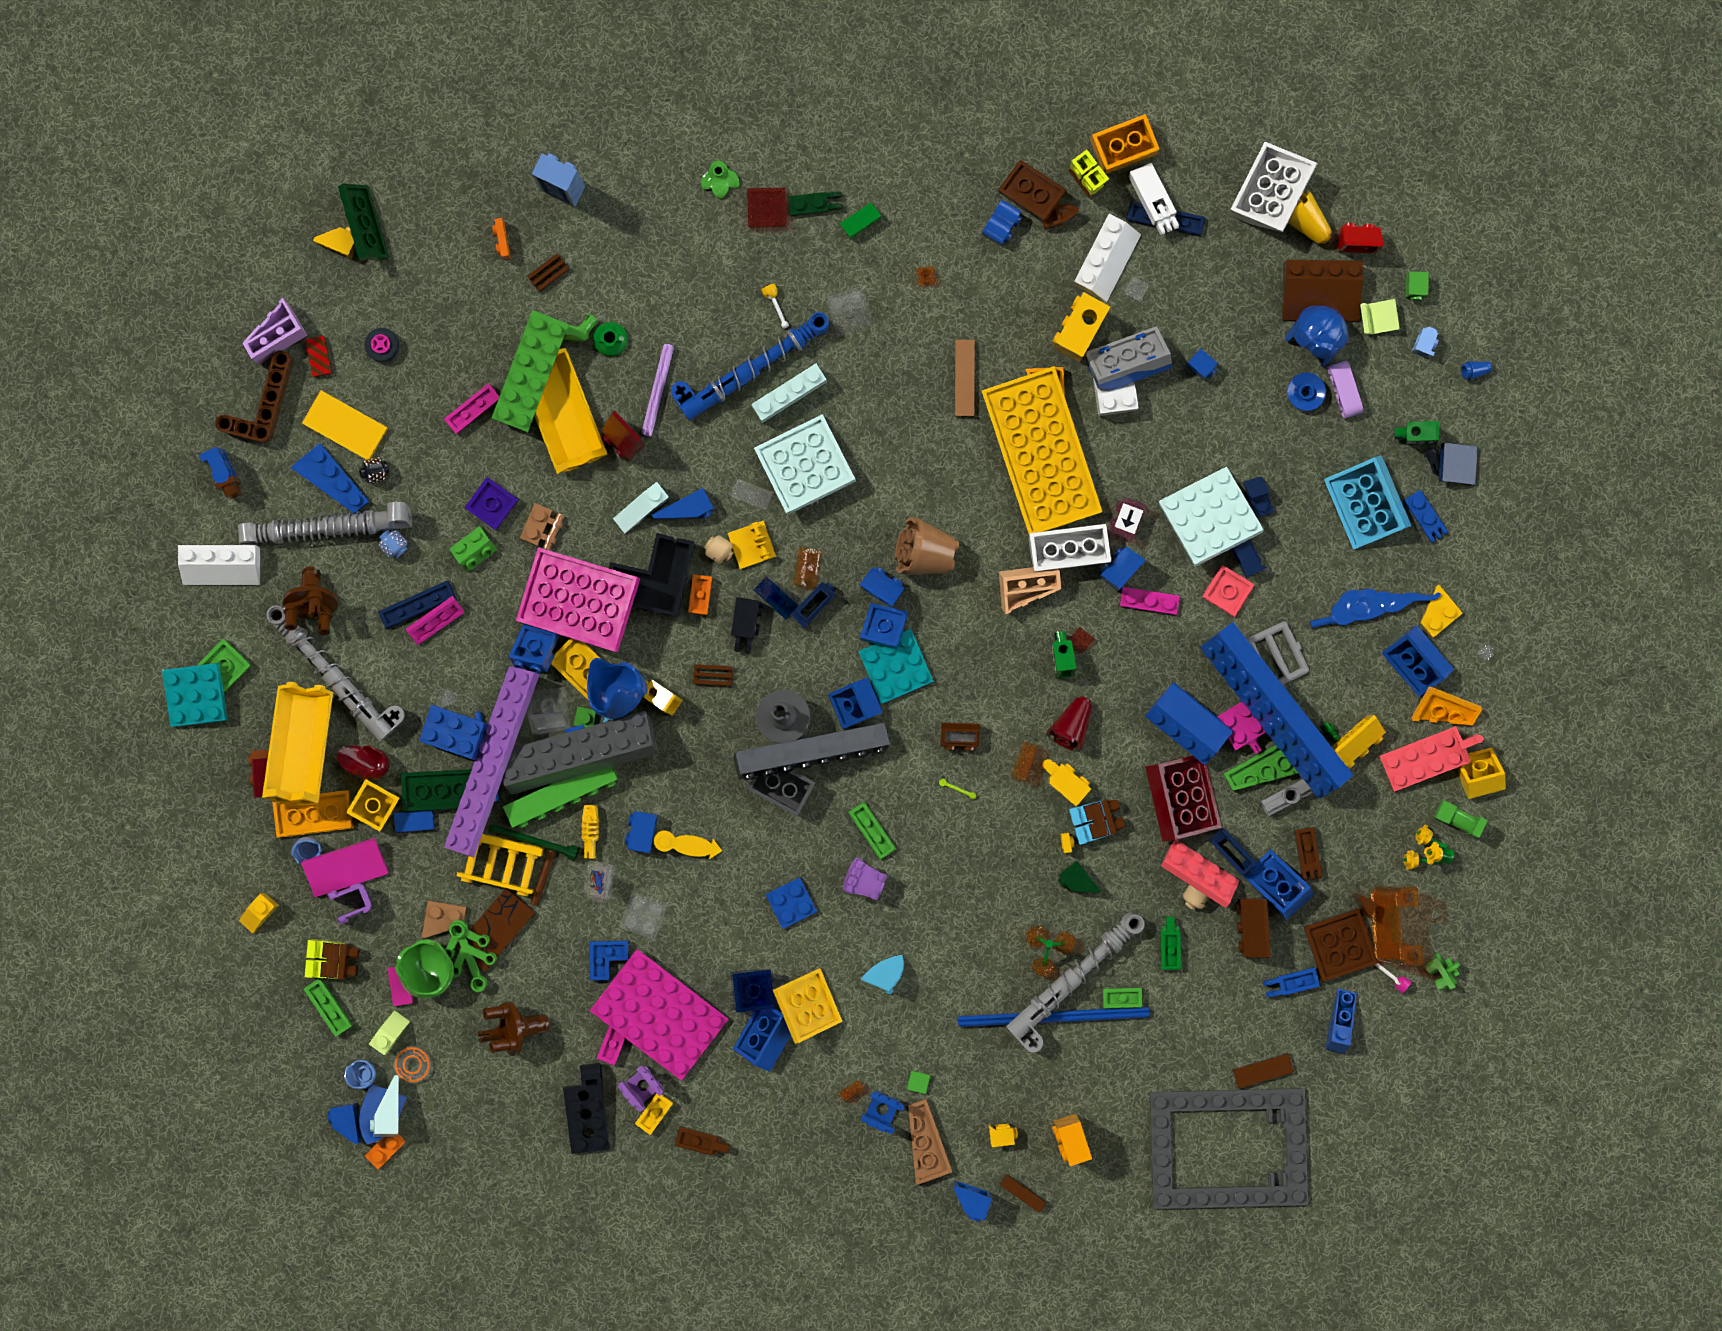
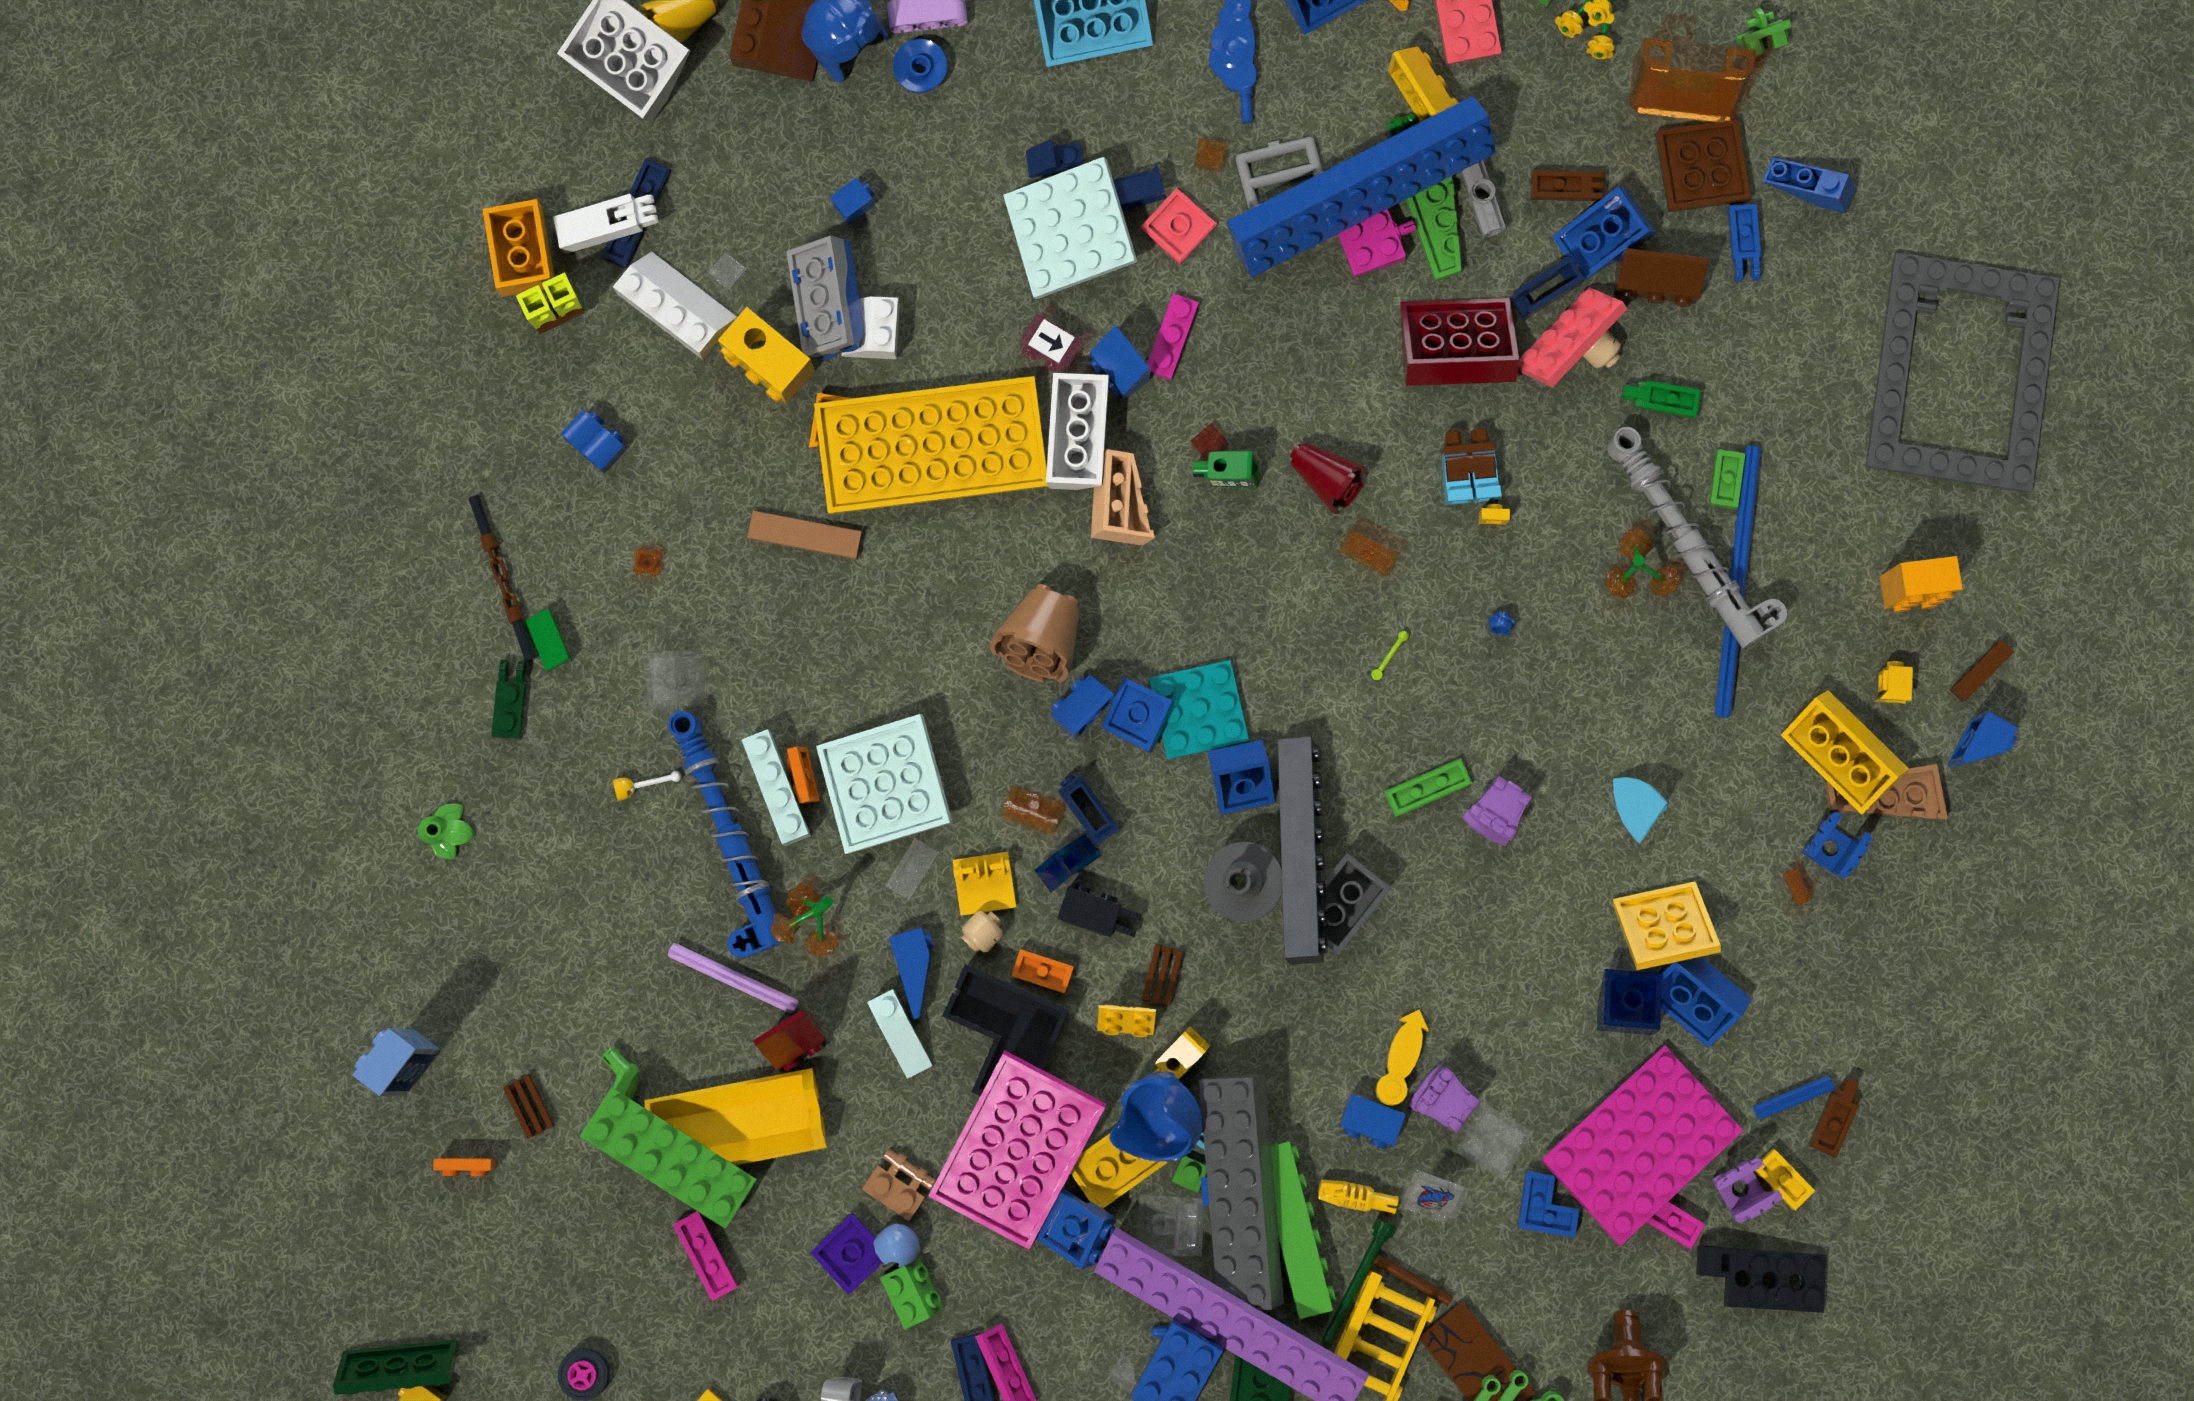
camera: 80 degrees left, 5 degrees down
(502, 533) = (897, 1244): none -> medium blue hair
(617, 346) = (659, 1035): green piece -> none
(664, 877) = (1444, 1099): none -> medium lavender piece
(676, 648) = (1123, 1019): none -> yellow hinge
(709, 1111) = (1793, 1097): none -> blue axle
(716, 426) = (802, 902): none -> clear orange plant
(766, 207) = (501, 770): clear red plate -> none
(791, 903) = (1511, 923): blue plate -> none
(805, 407) = (801, 768): none -> orange plate
(874, 194) = (513, 613): none -> piece
(918, 1082) = (1799, 789): bright green tile -> none
(948, 1107) = (1844, 752): none -> yellow slope
(960, 735) = (1314, 636): reddish brown window -> none
(993, 860) = (1501, 623): none -> blue plate
(1032, 190) = (557, 388): reddish brown plate -> none
(1059, 215) = (599, 360): reddish brown plate -> none
(1066, 782) = (1408, 499): yellow hinge -> none
(1077, 879) = (1548, 510): dark green slope -> none
(1189, 723) = (1356, 312): blue slope -> none
(1263, 1070) = (1861, 304): reddish brown tile -> none
(1282, 603) = (1209, 155): none -> clear orange tile
(1365, 905) = (1655, 119): reddish brown slope -> none
(1401, 983) = (1770, 93): hinge -> none

